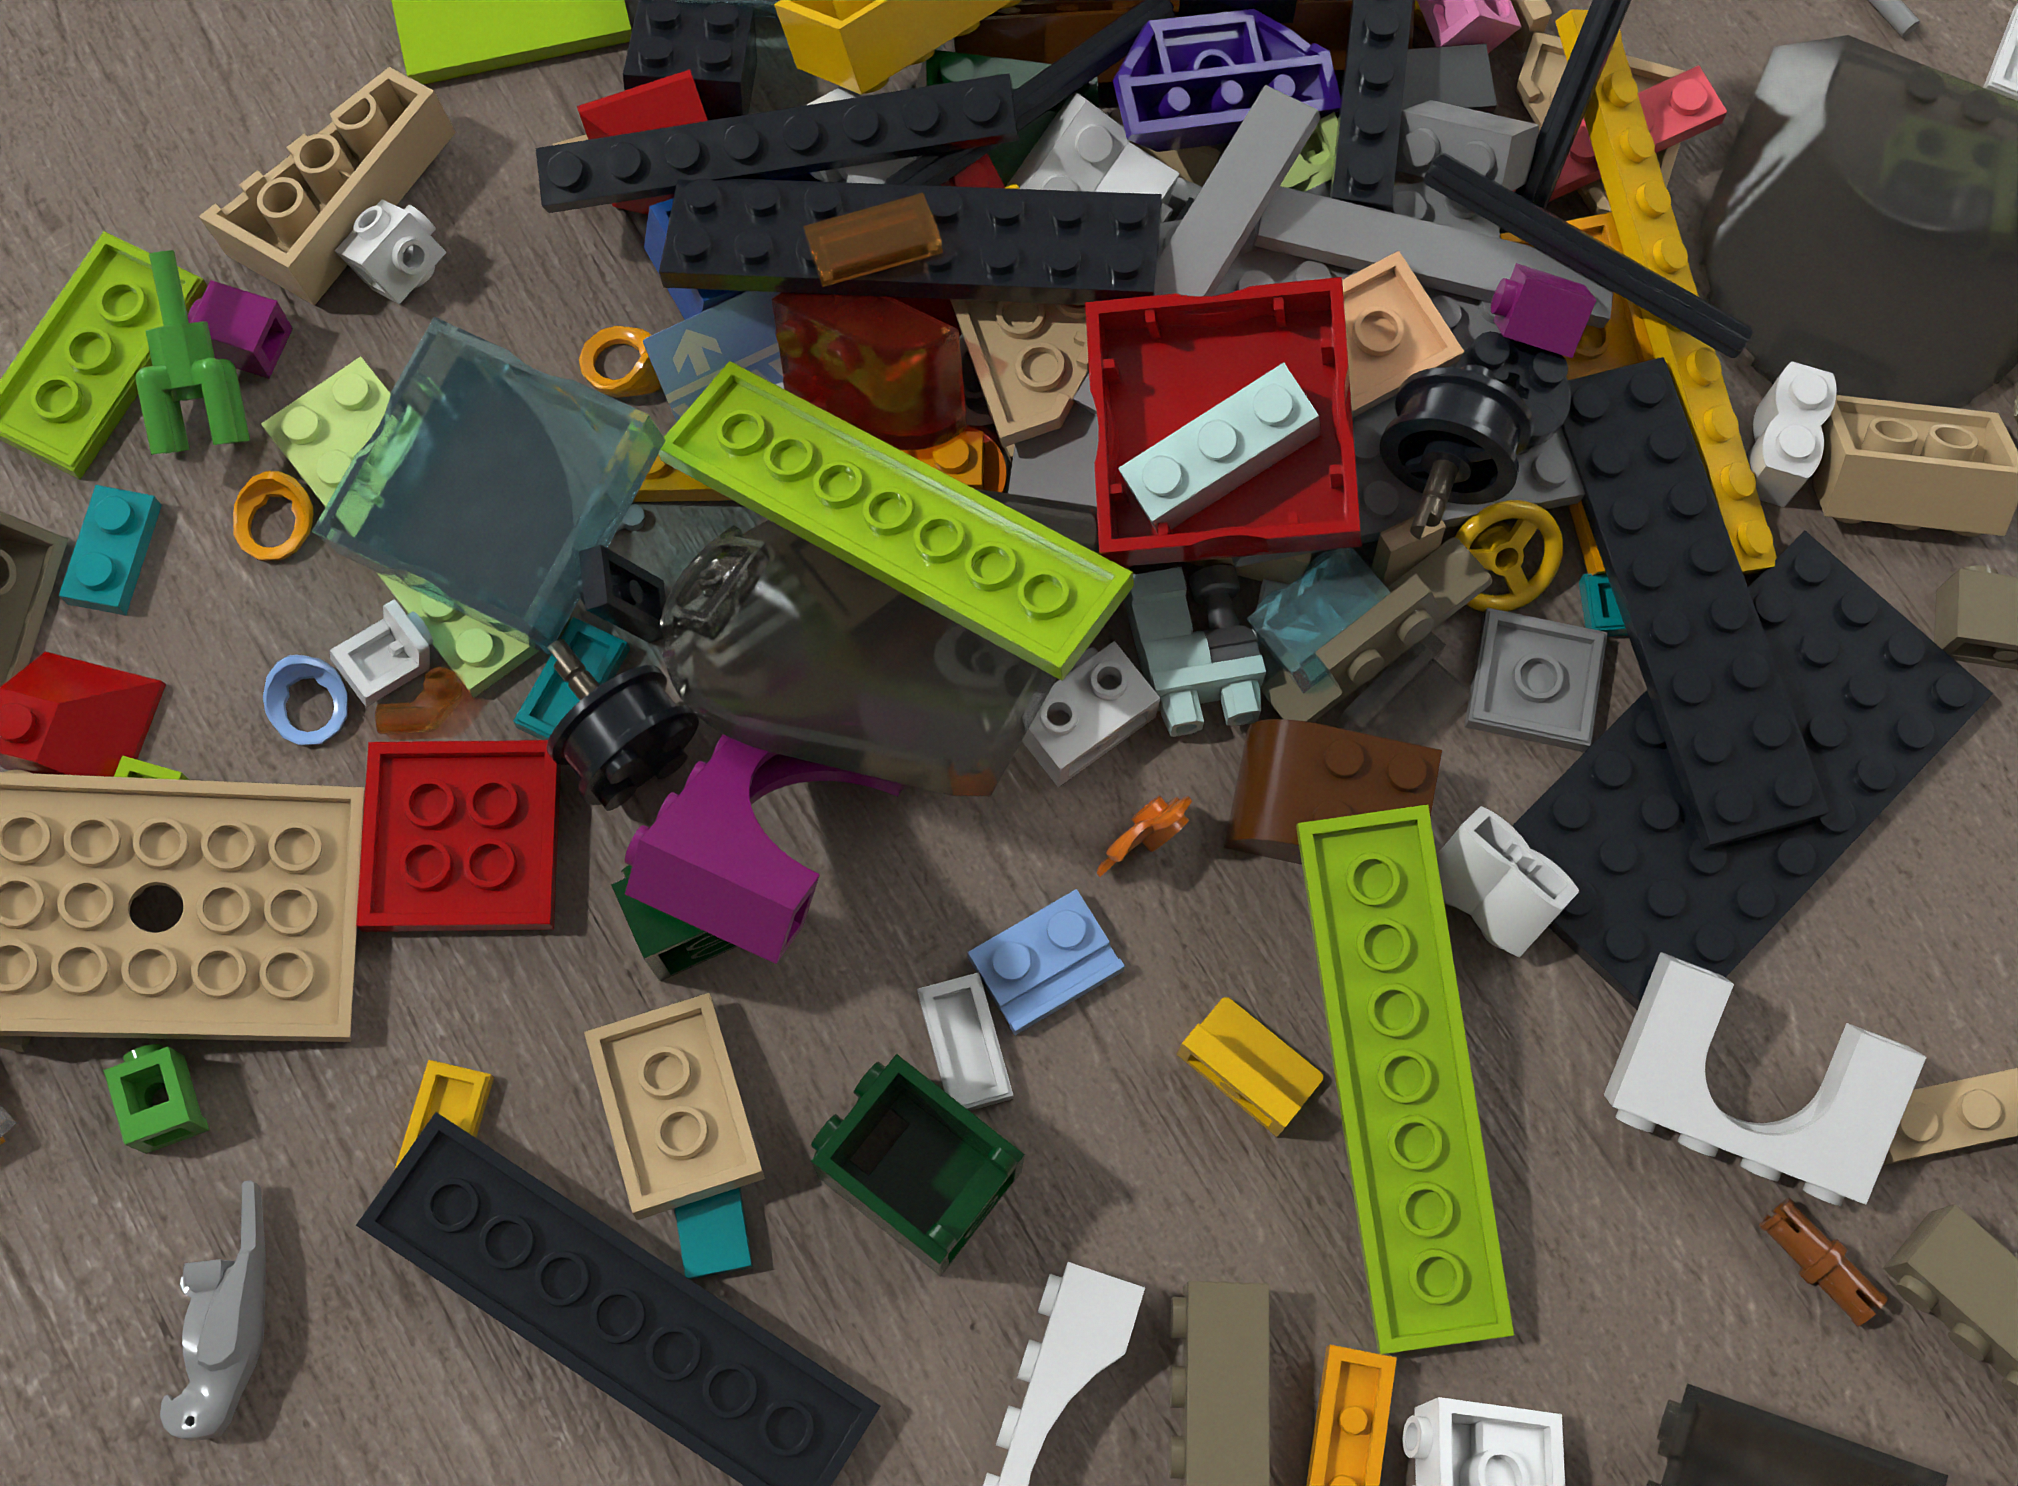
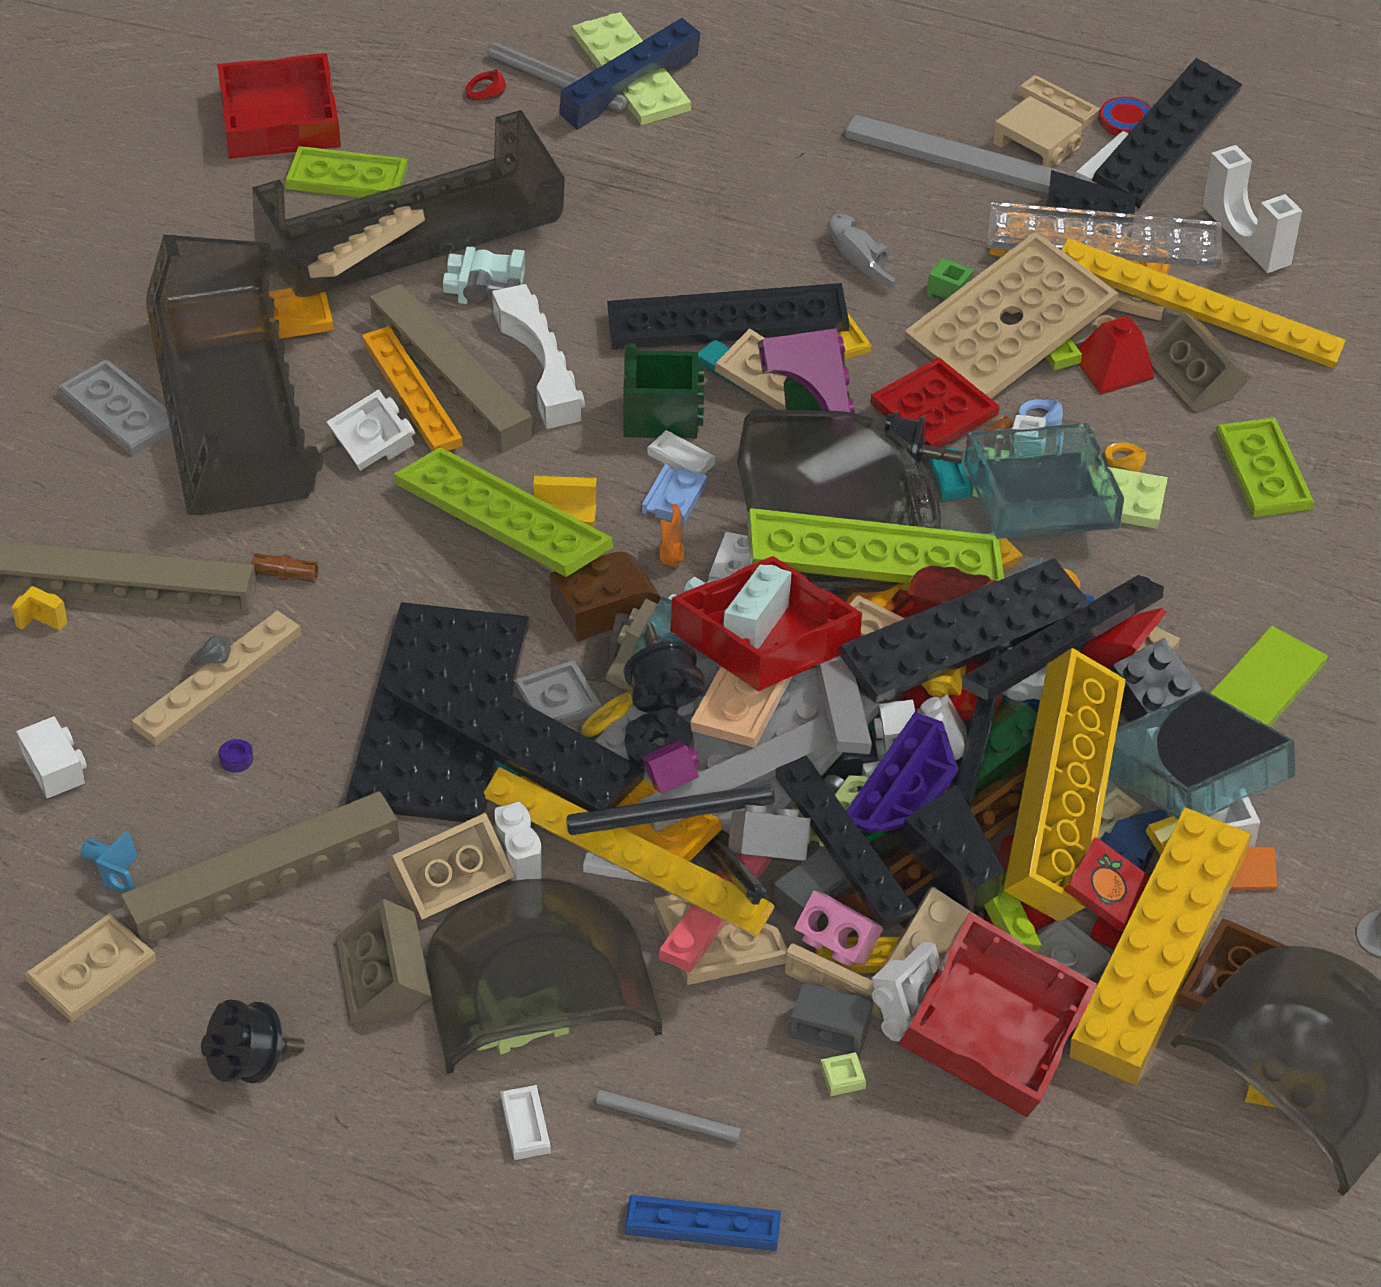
camera: 145 degrees right, 25 degrees down
(110, 550) = (1172, 414): teal plate -> none
(185, 371) = (1205, 455): bright green plant -> none
(243, 327) = (1215, 498): magenta brick -> none
(309, 202) = (1239, 556): tan wedge -> none
(392, 249) = (1189, 551): white brick -> none
(621, 593) = (956, 488): black plate -> none
(873, 239) = (975, 597): clear orange tile -> none
(1502, 882) = (523, 598): white brick -> none
(1830, 1143) = (386, 576): white arch -> none

